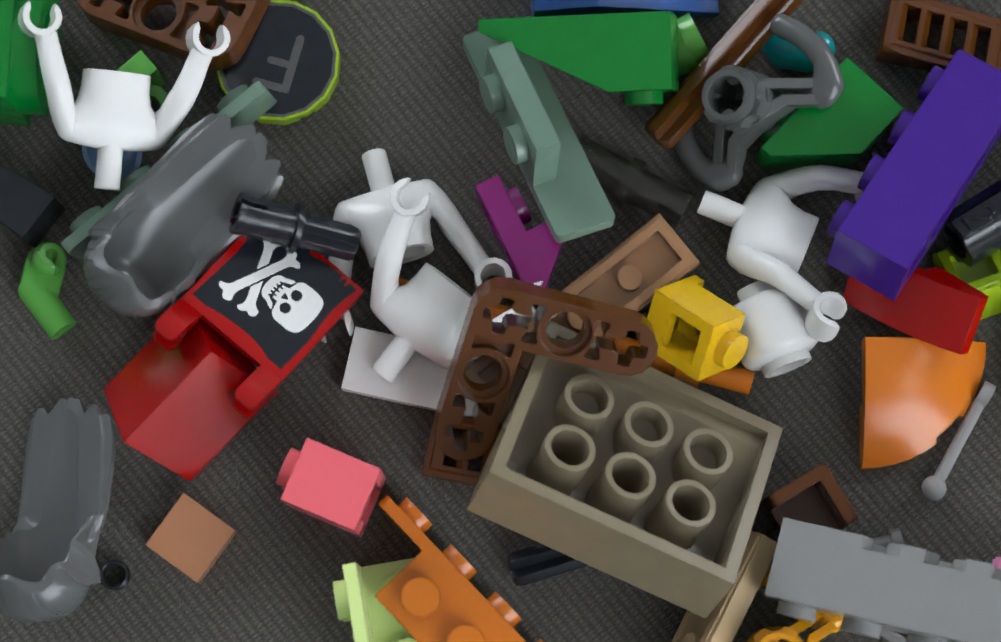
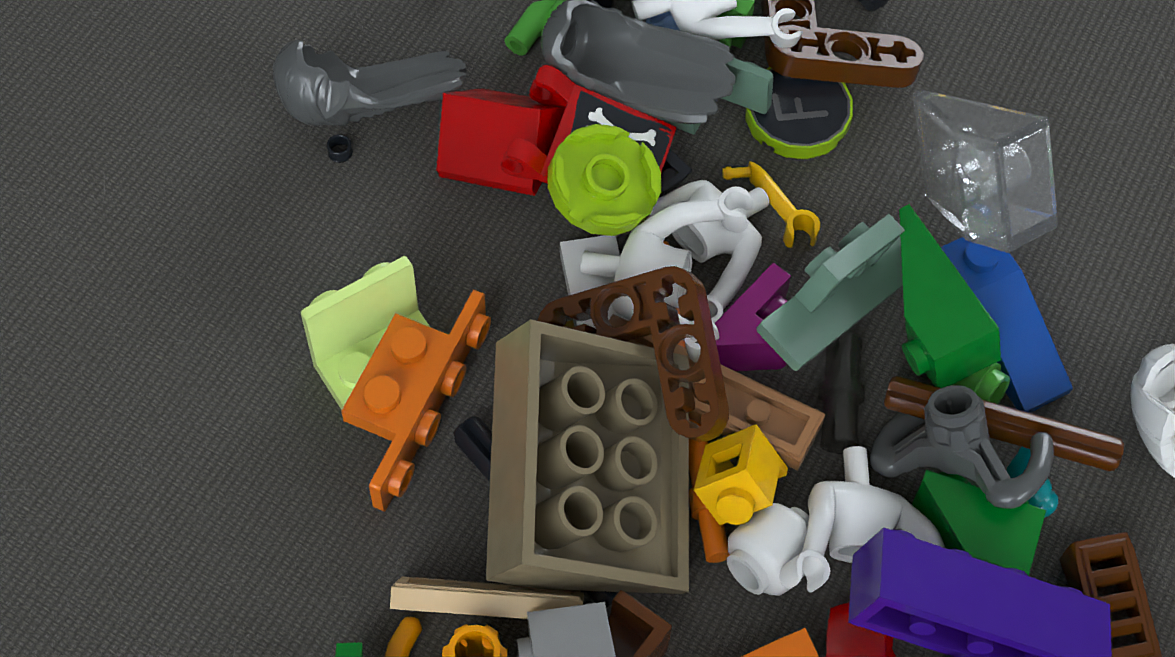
camera: 65 degrees right, 20 degrees down
(191, 538) = (391, 187): nougat tile -> none
(293, 228) = (669, 141): black axle -> none
(311, 316) = (604, 180): none -> lime tile
(331, 486) = (471, 248): coral piece -> none
(385, 139) = (794, 218): none -> yellow piece

